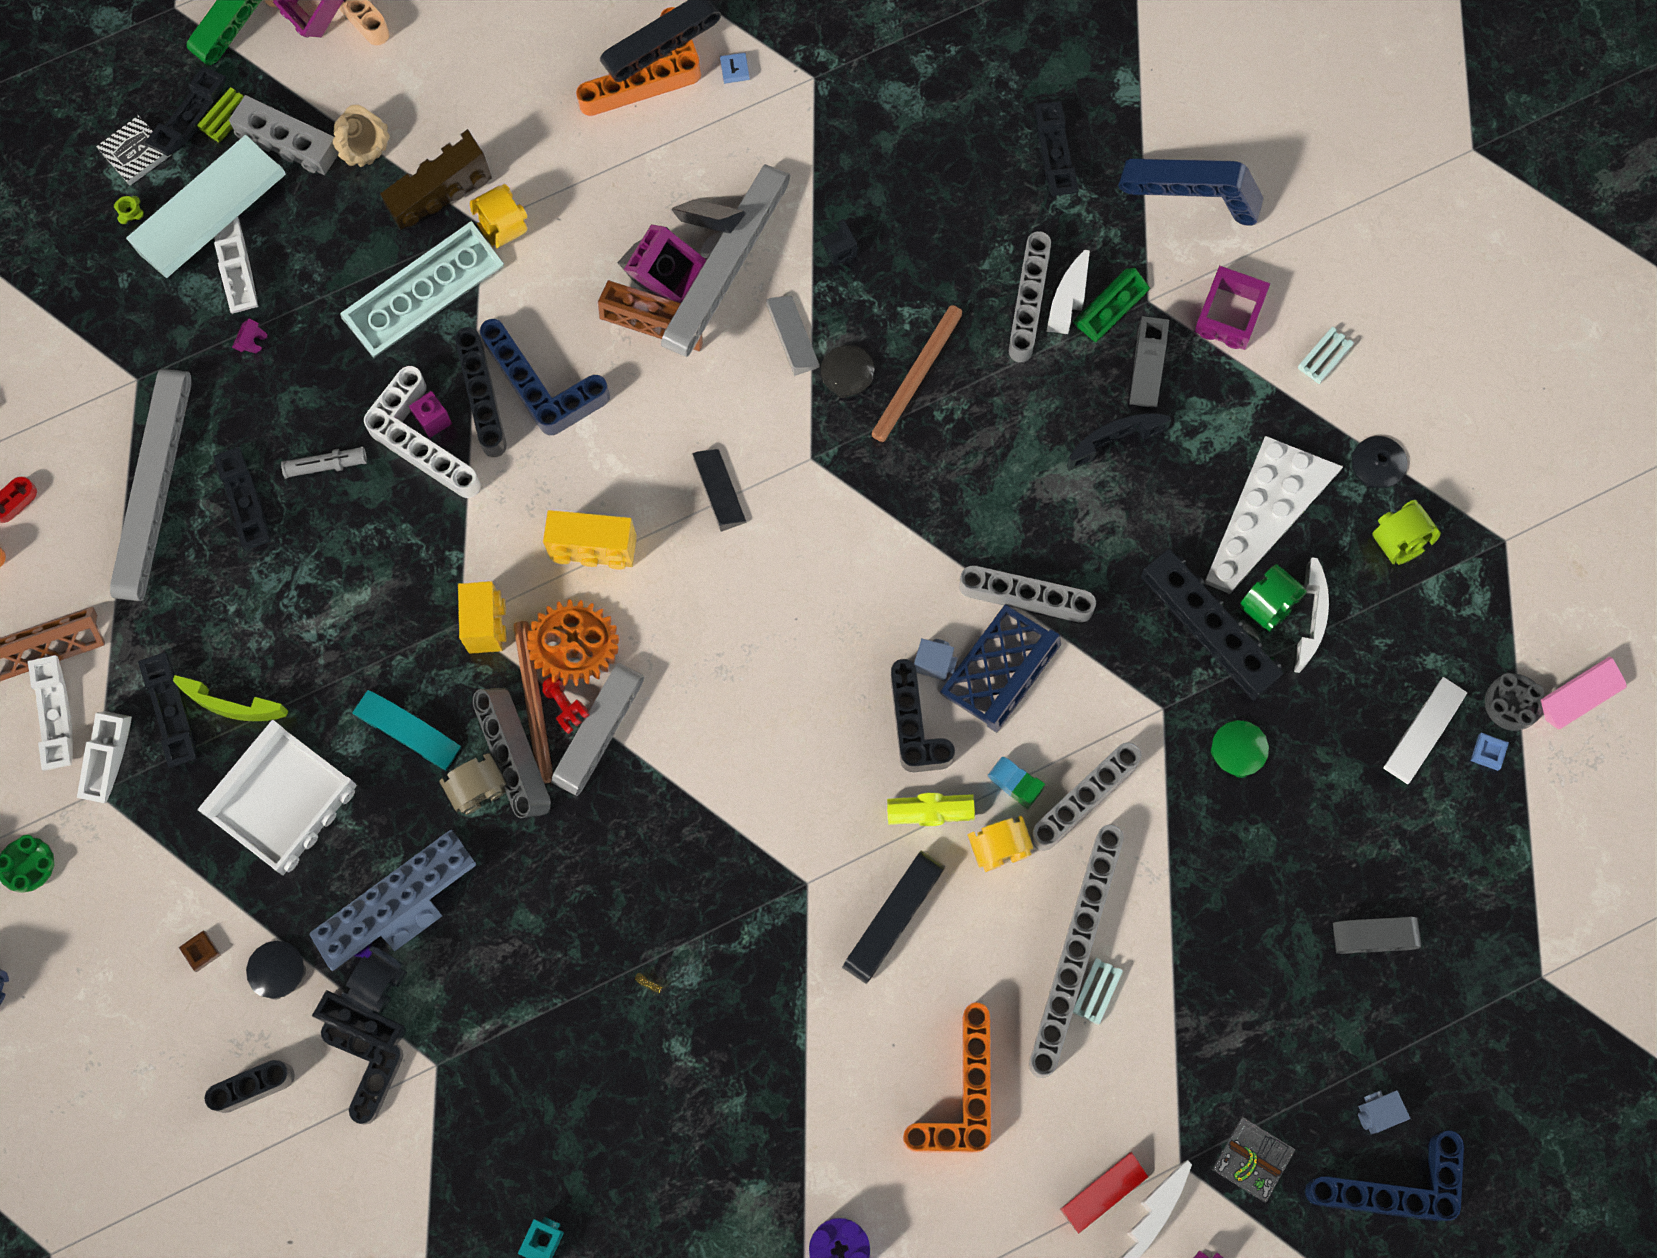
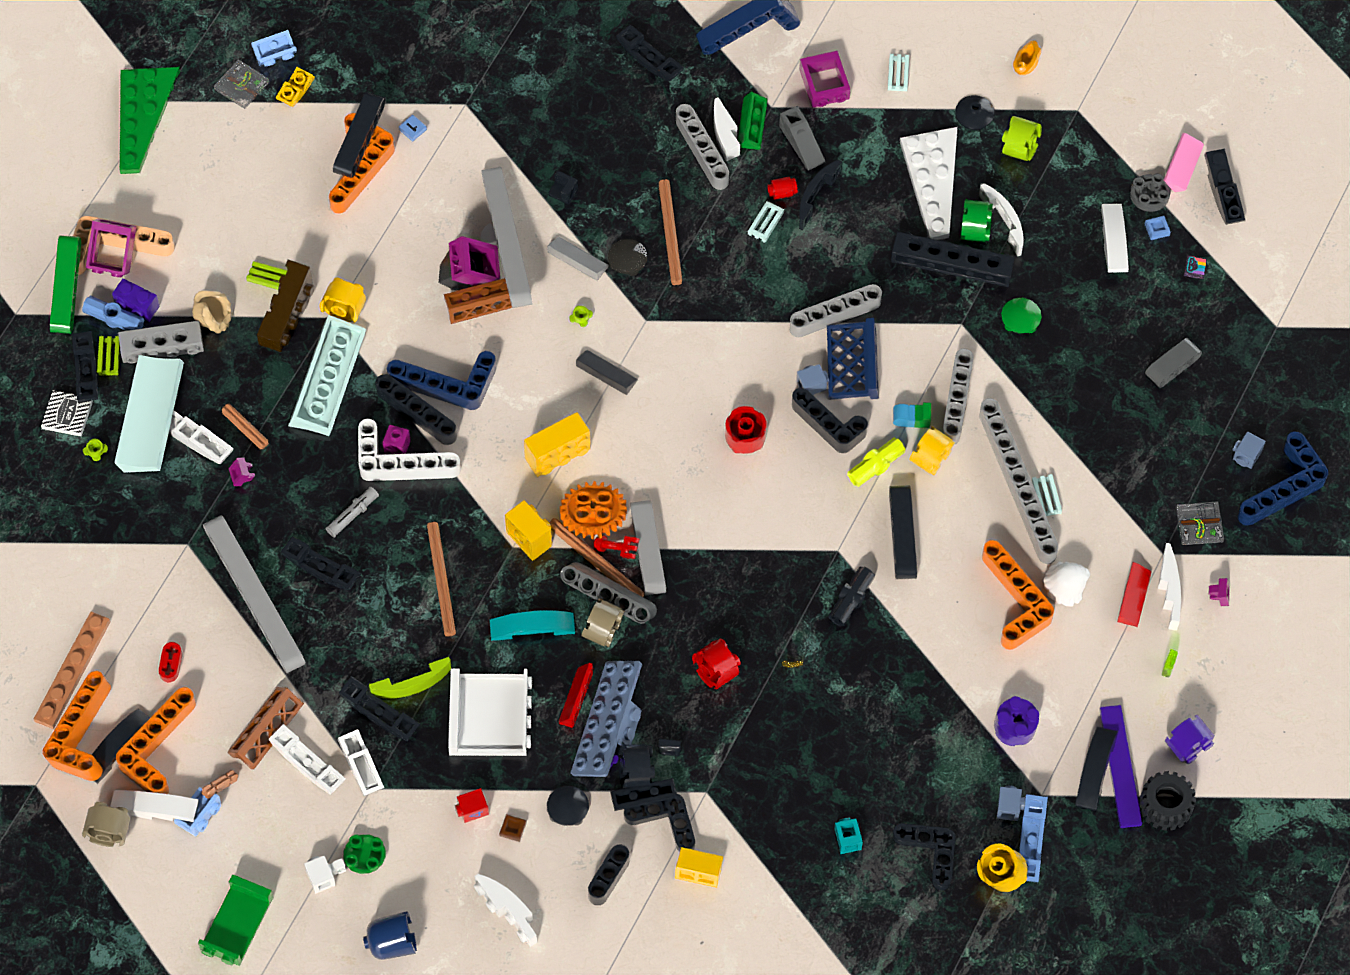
camera: 40 degrees left, 10 degrees down
(118, 1031) = (504, 901): none -> white slope
(174, 894) = (471, 805): none -> red brick
(255, 63) = (103, 310): none -> medium blue piece
(295, 71) = (136, 299): none -> dark purple brick
(295, 288) = (244, 426): none -> nougat axle
(352, 1152) = (698, 867): none -> yellow hinge
(354, 606) = (441, 579): none -> nougat axle
(386, 847) = (576, 695): none -> red slope
(432, 984) = (669, 747): none -> black tile
(442, 120) = (266, 271): none -> lime tile
(556, 925) = (716, 663): none -> red brick
(709, 215) = (474, 219): black slope -> none
(739, 398) = (581, 310): none -> lime plate
(775, 952) = (851, 596): none -> black piece
(804, 653) = (745, 430): none -> red brick
(1013, 442) = (759, 234): none -> light aqua tile
(1033, 1117) = (1066, 582): none -> white hair
(1082, 405) = (782, 188): none -> red brick
(1491, 438) = (1027, 58): none -> light orange arm
(1498, 833) = (1195, 267): none -> tile
(1609, 758) = (1223, 187): none -> black slope

